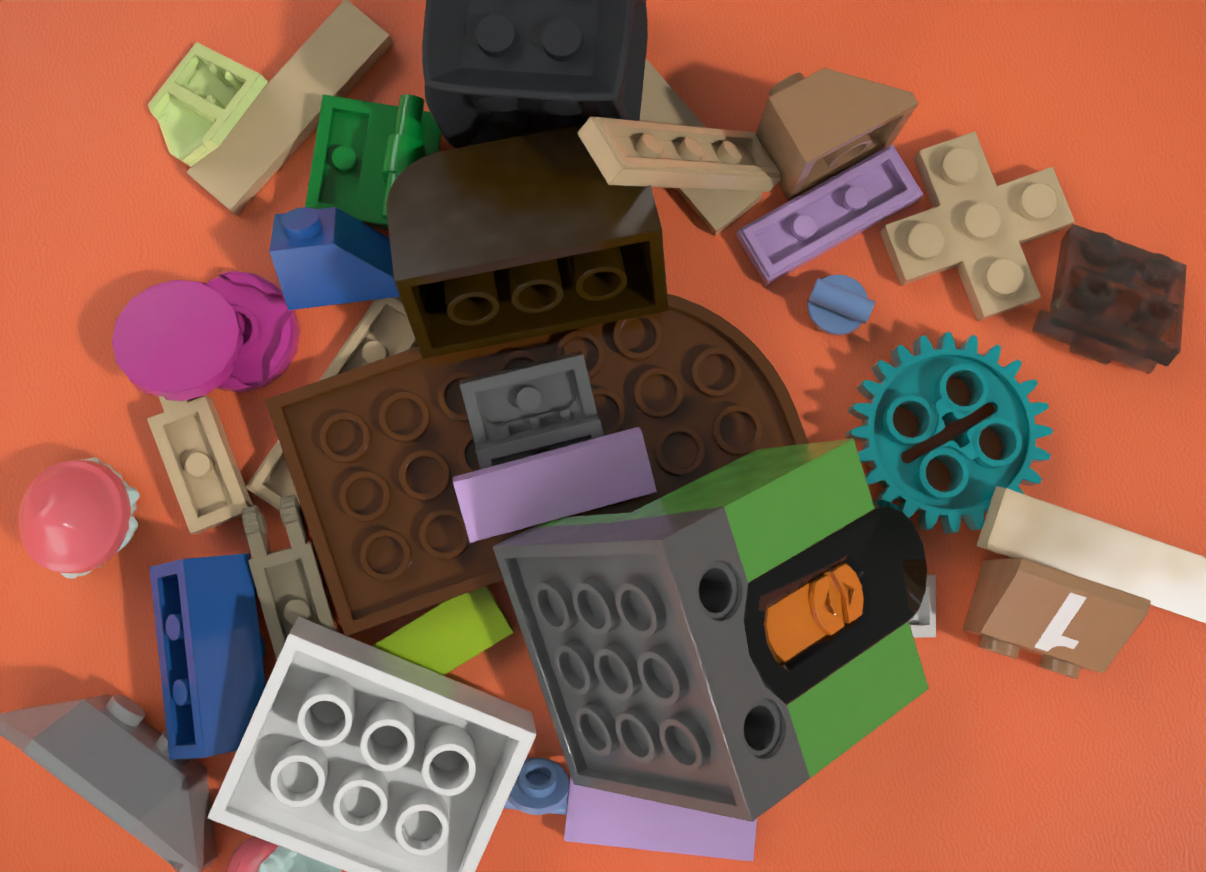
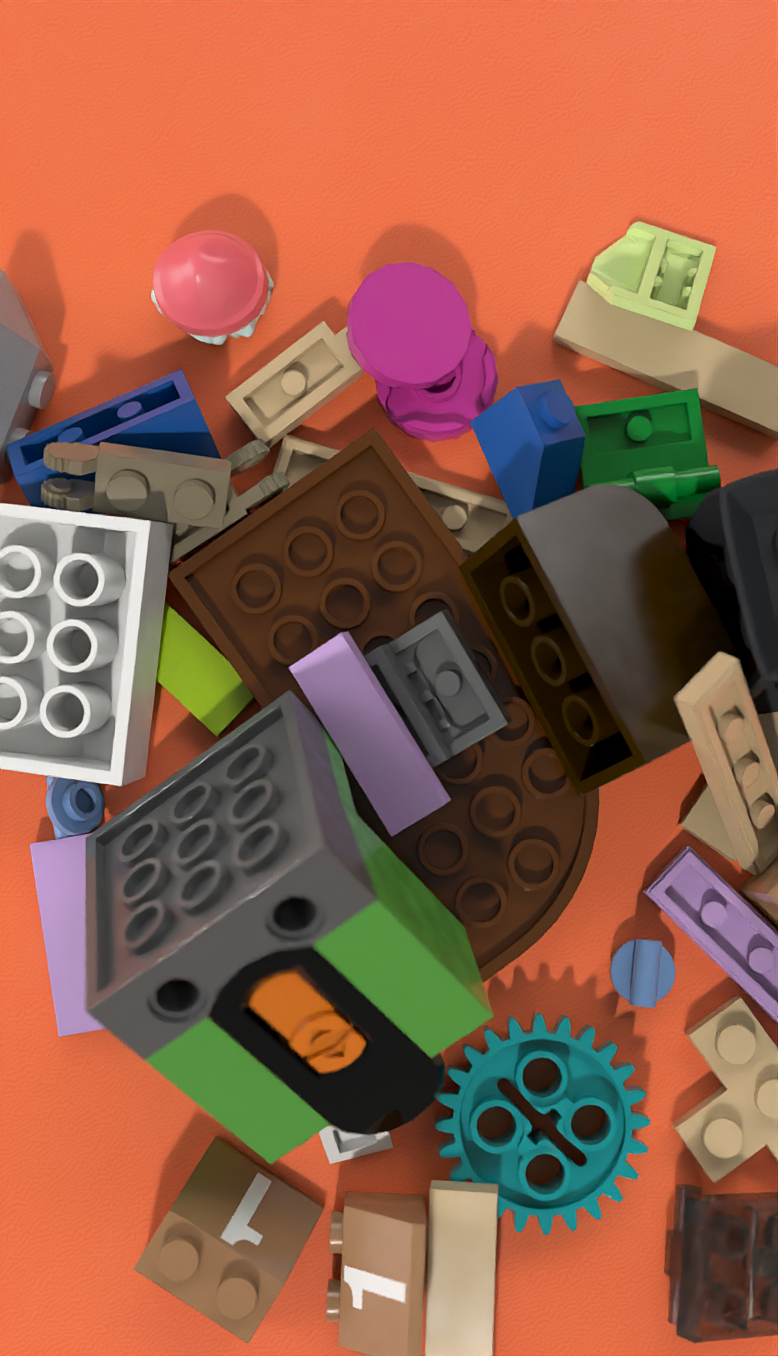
camera: 75 degrees right, 0 degrees up
(247, 637) = (138, 483): none -> dark tan hinge
(982, 748) = (230, 1239): none -> medium nougat slope

